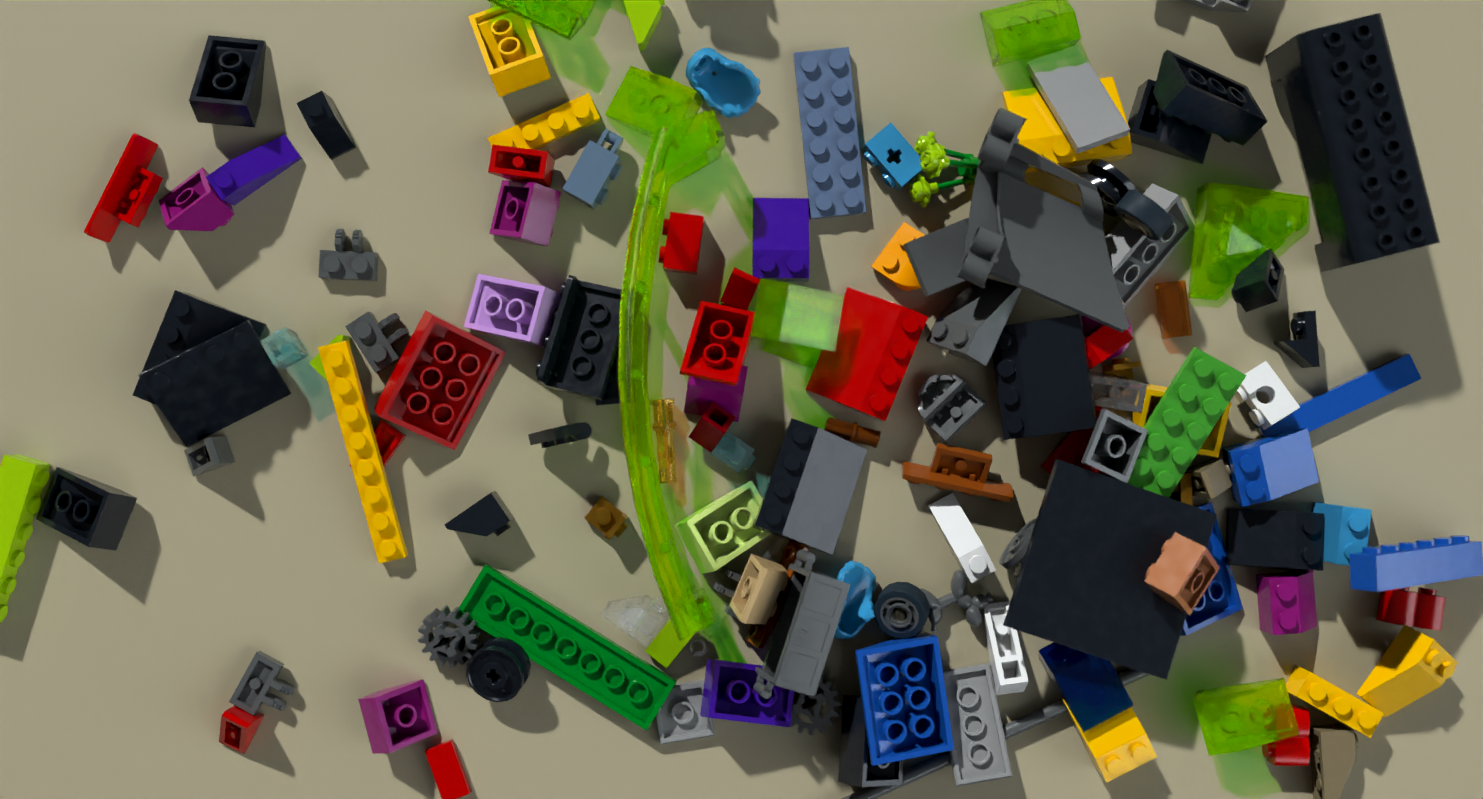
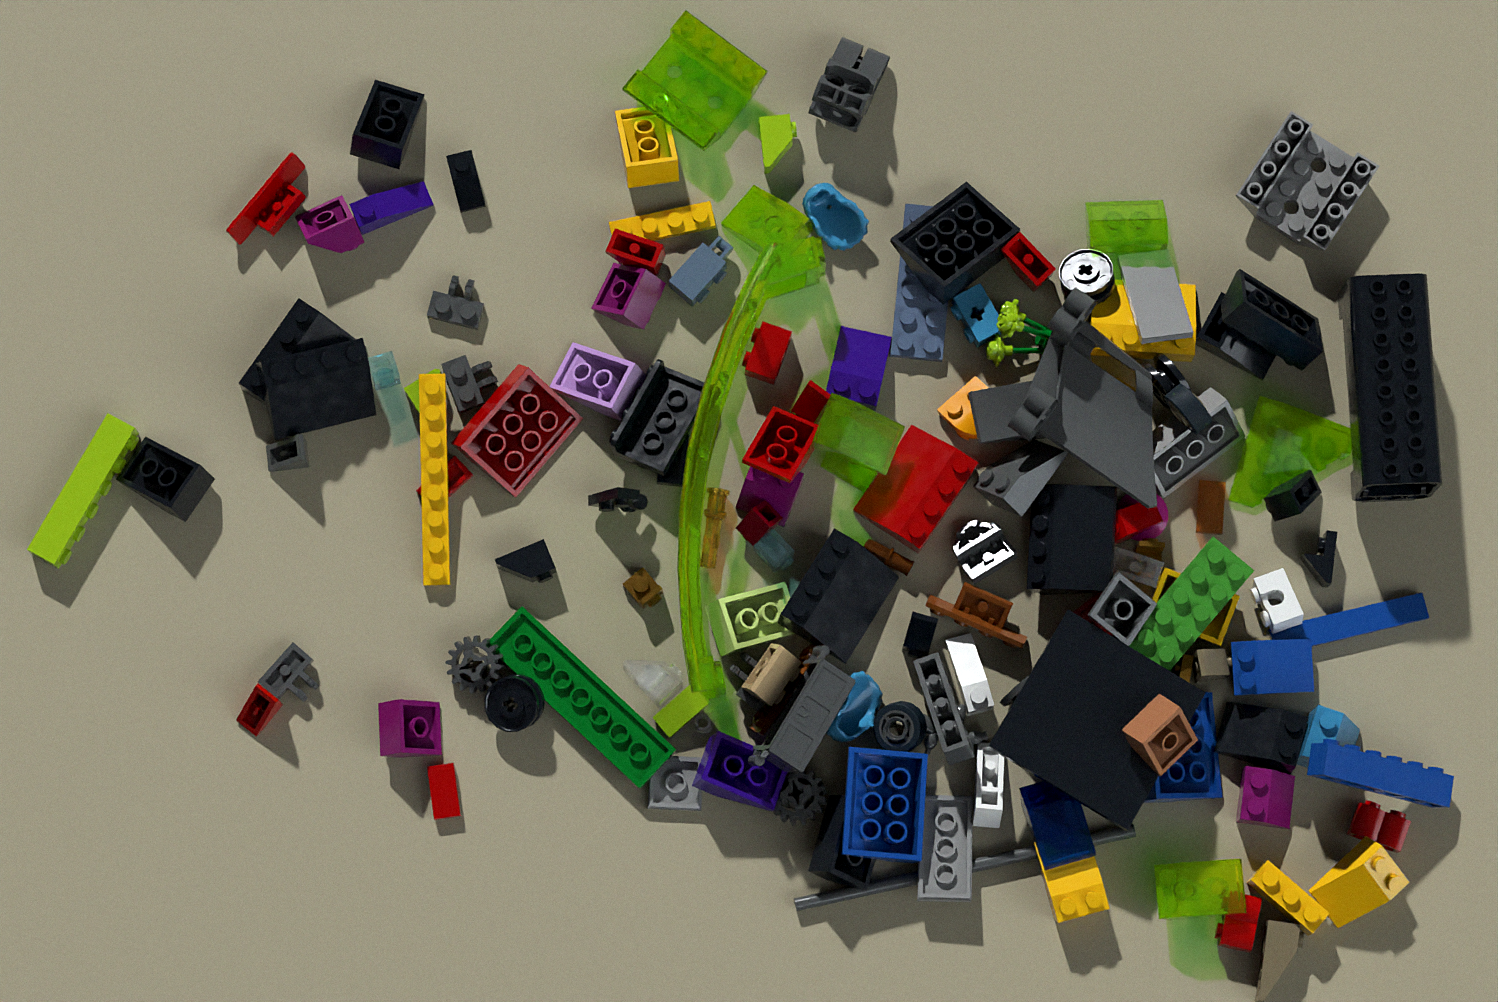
camera: 15 degrees right, 10 degrees down
(856, 83) = (954, 242): none -> black slope
(902, 510) = (919, 635): none -> black slope
(936, 89) = (1027, 262): none -> red slope
(944, 586) = (943, 708): none -> dark grey brick
(1003, 86) = (1089, 272): none -> wheel

